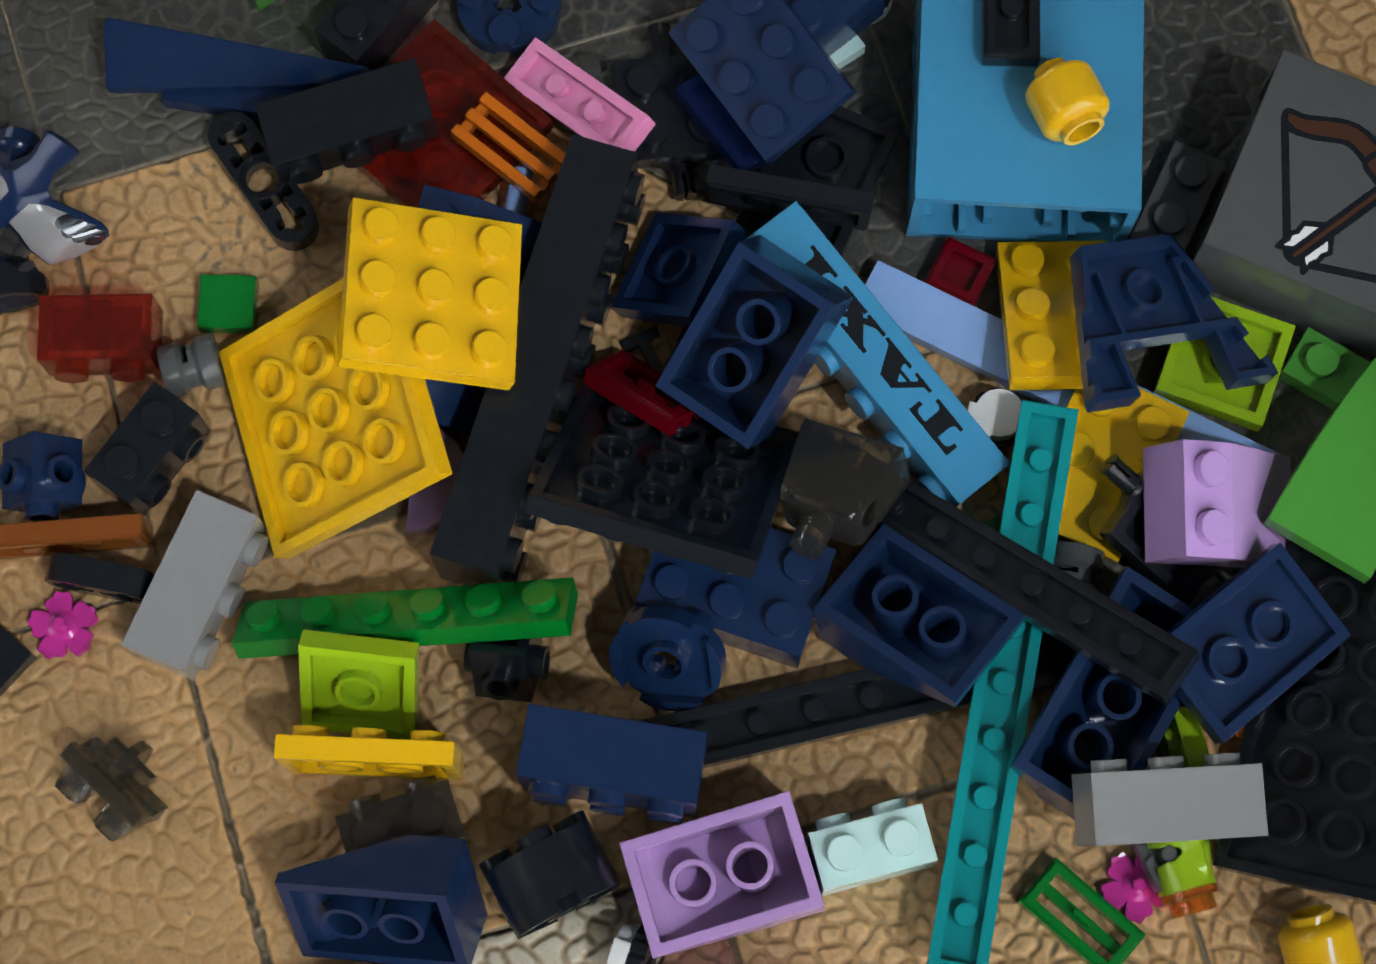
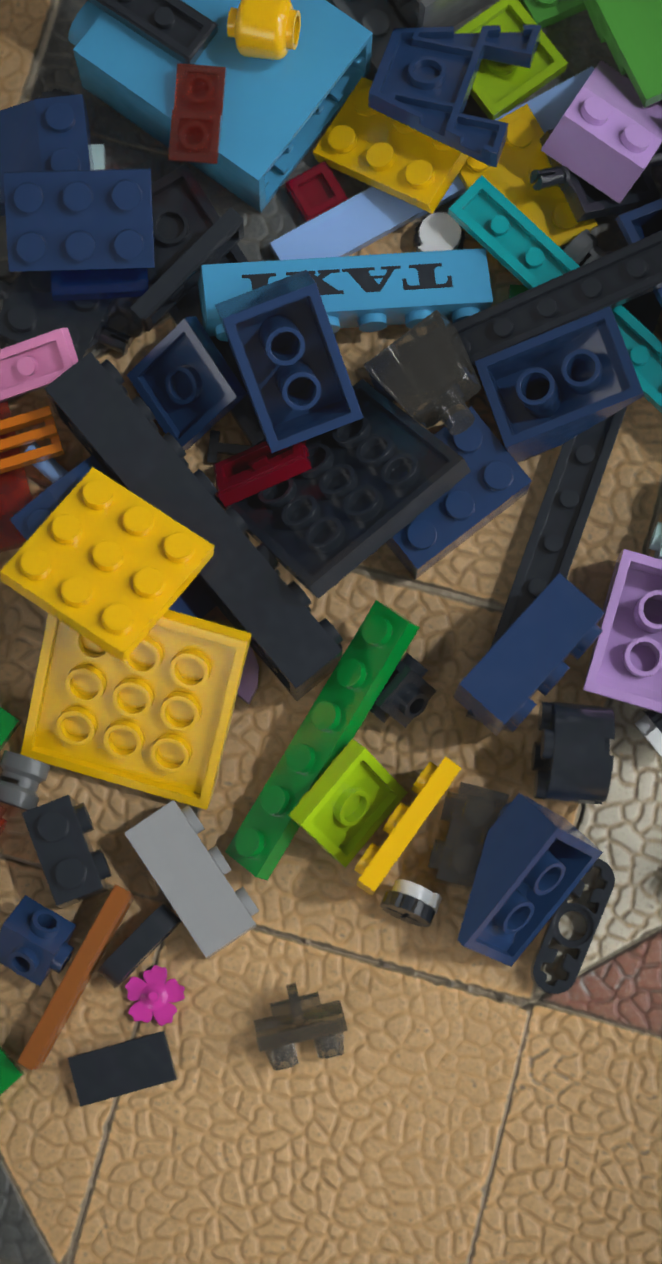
camera: 60 degrees left, 5 degrees up
(303, 813) = (411, 903): none -> black piece
(673, 630) = (446, 571): dark blue plate -> none
(939, 99) = (197, 113): none -> clear red slope

